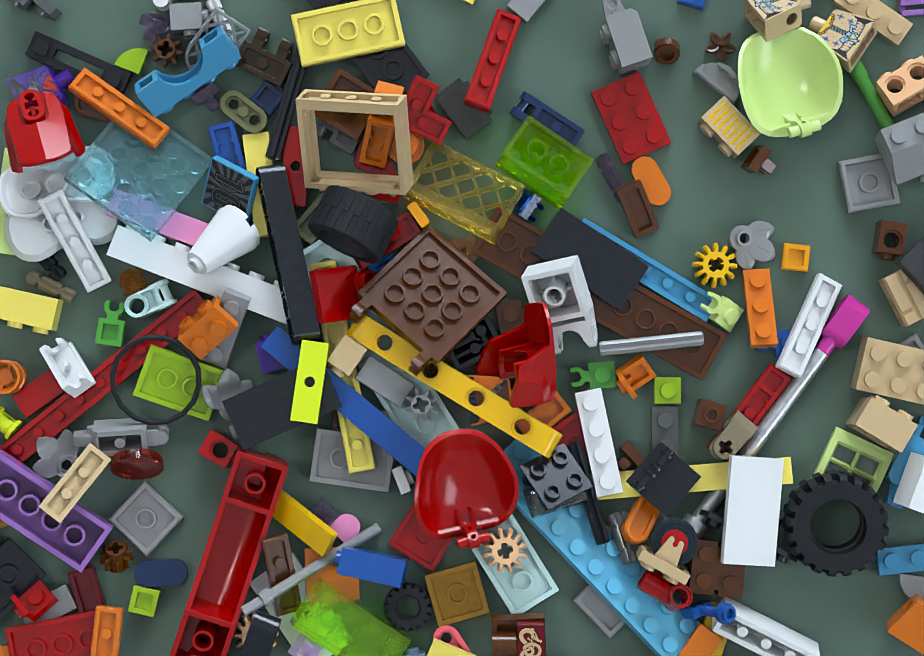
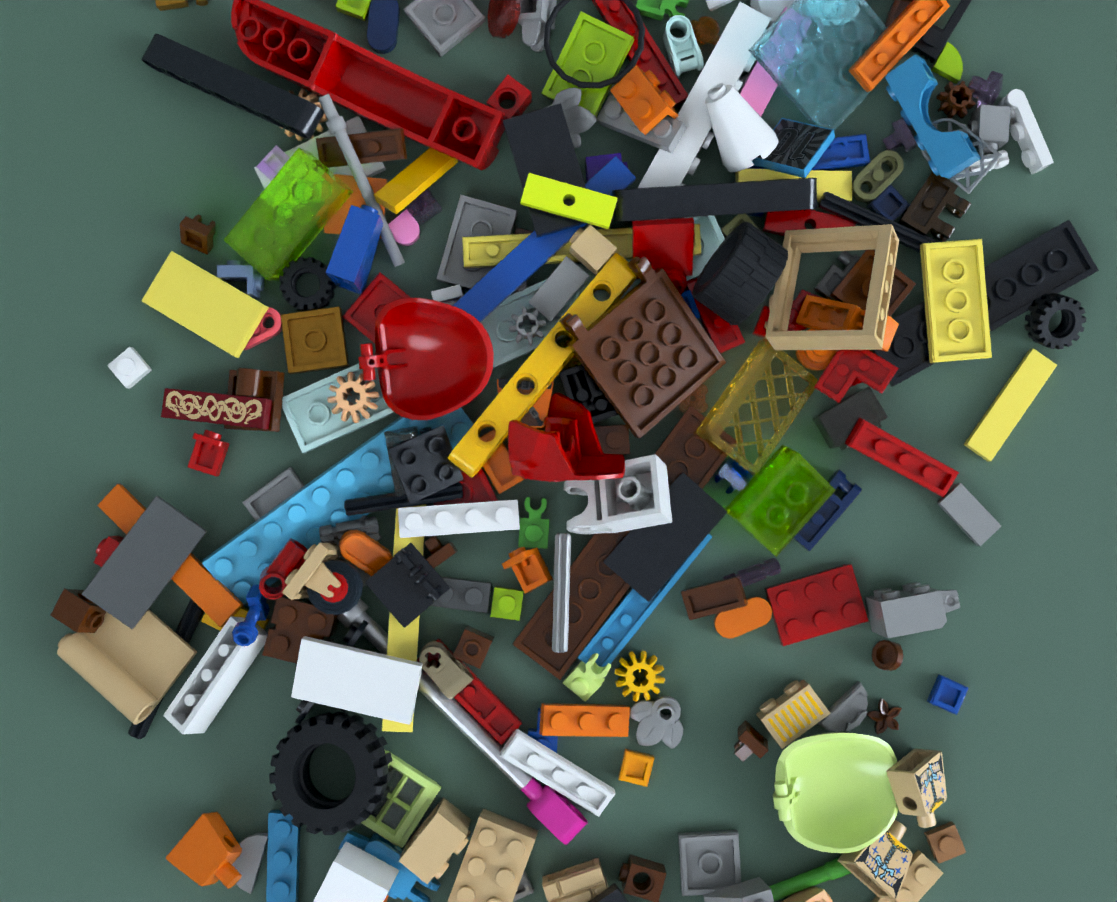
camera: 95 degrees right, 0 degrees up
(418, 215) = (738, 352): light orange tile -> none

